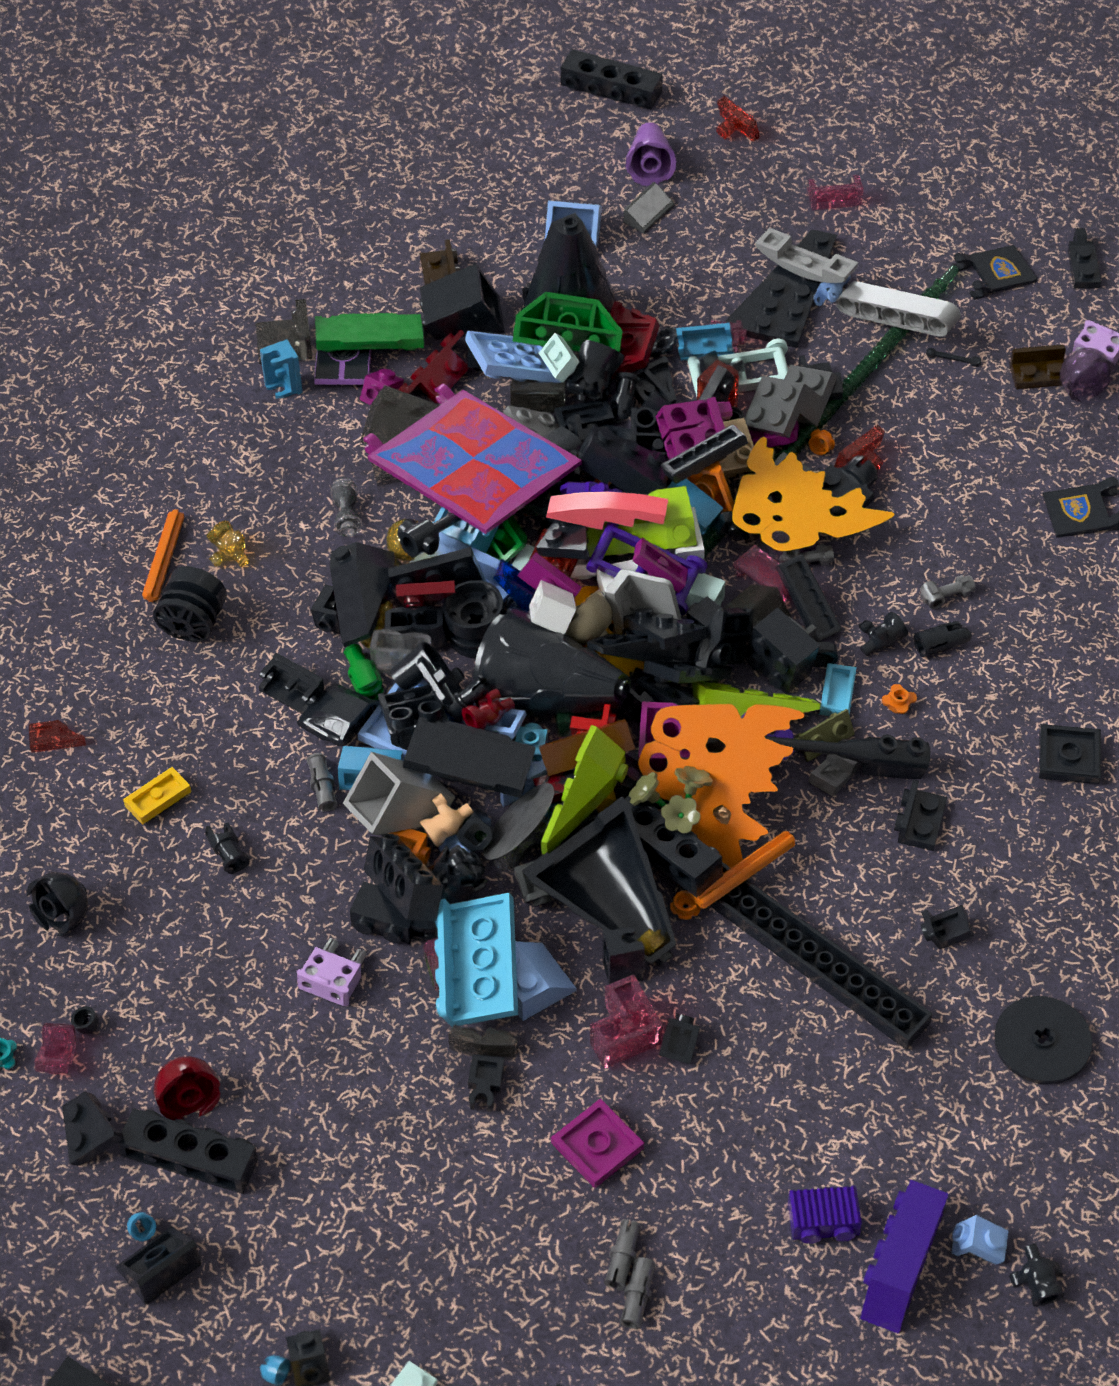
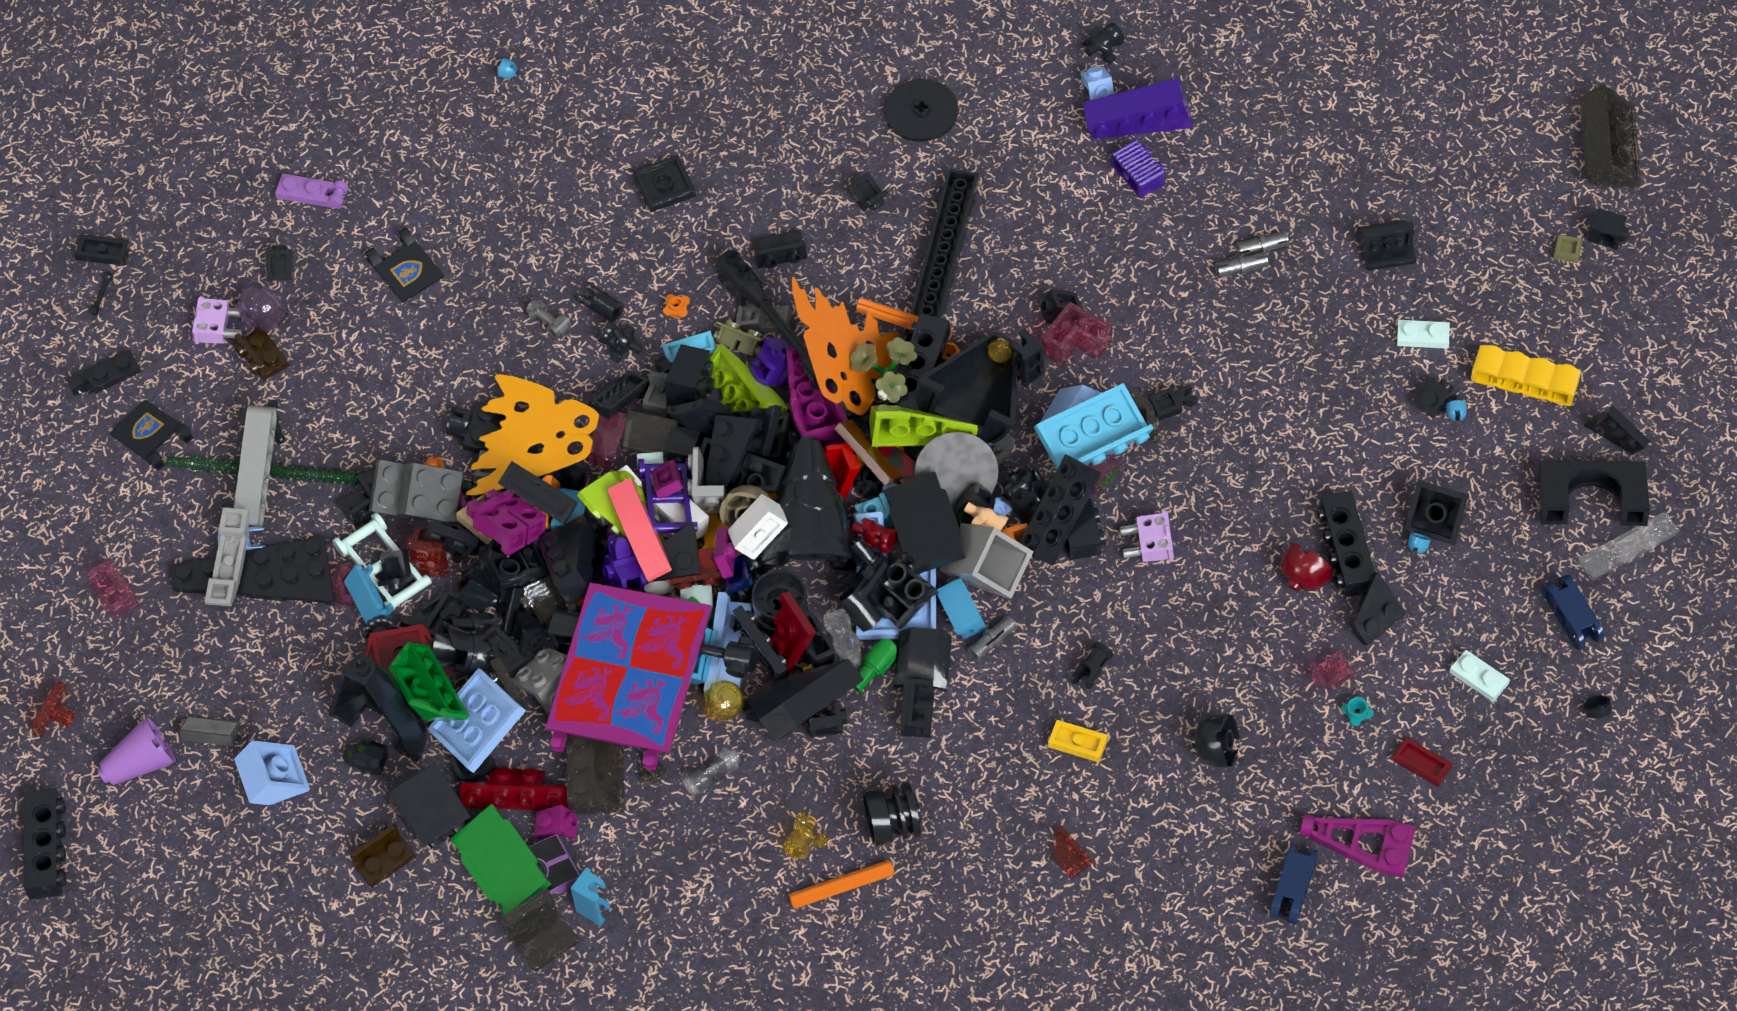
camera: 115 degrees left, 5 degrees up
(80, 1020) = (1293, 664): black hinge -> none
(559, 357) = (471, 667): light aqua plate -> none
(597, 1143) = (1173, 315): magenta plate -> none
(863, 446) = (431, 434): clear red tile -> none

